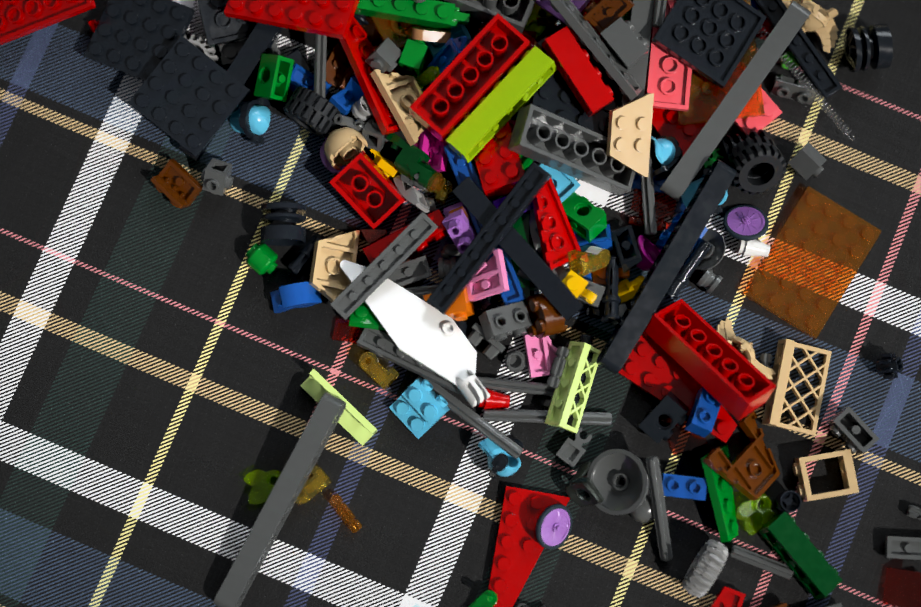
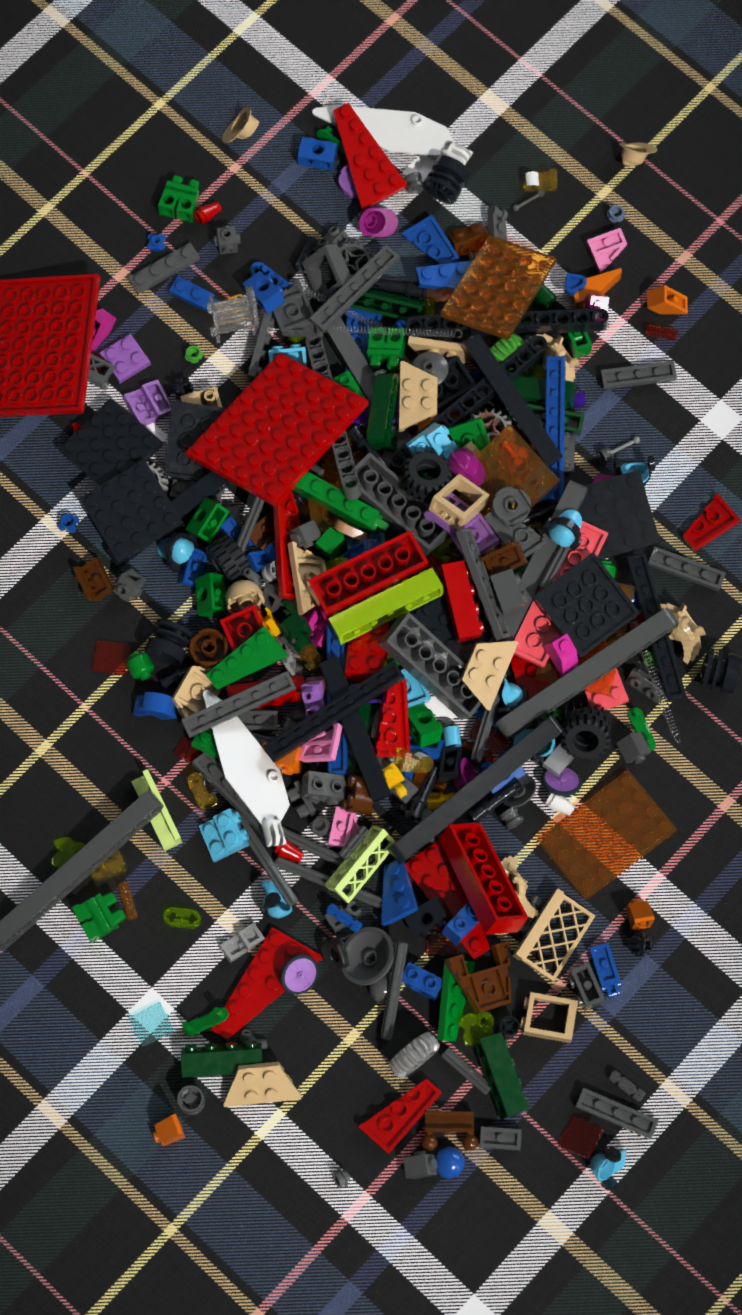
camera: 20 degrees right, 10 degrees down
(121, 127) = (68, 518): none -> blue plate
(227, 260) = (111, 657): none -> clear red piece
(277, 135) = (192, 568): none -> blue slope
(307, 156) = (211, 595): none -> green brick
(318, 220) = (202, 642): none -> reddish brown brick
(321, 537) = (96, 916): none -> green hips
(378, 208) = (253, 655): none -> green wing
(410, 515) = (182, 923): none -> clear neon green beam
(480, 513) = (242, 942): none -> light grey slope
(578, 450) = (344, 917): none -> blue axle
(616, 217) = (451, 736): none -> medium azure beam
(623, 405) = (398, 894): none -> blue wing
(703, 89) = (562, 654): none -> dark pink slope
(735, 203) = (558, 760): none -> light grey slope
(803, 135) = (640, 725): none -> green piece
(863, 404) = (606, 969): none -> blue hinge
(878, 334) = (639, 914): none -> orange slope

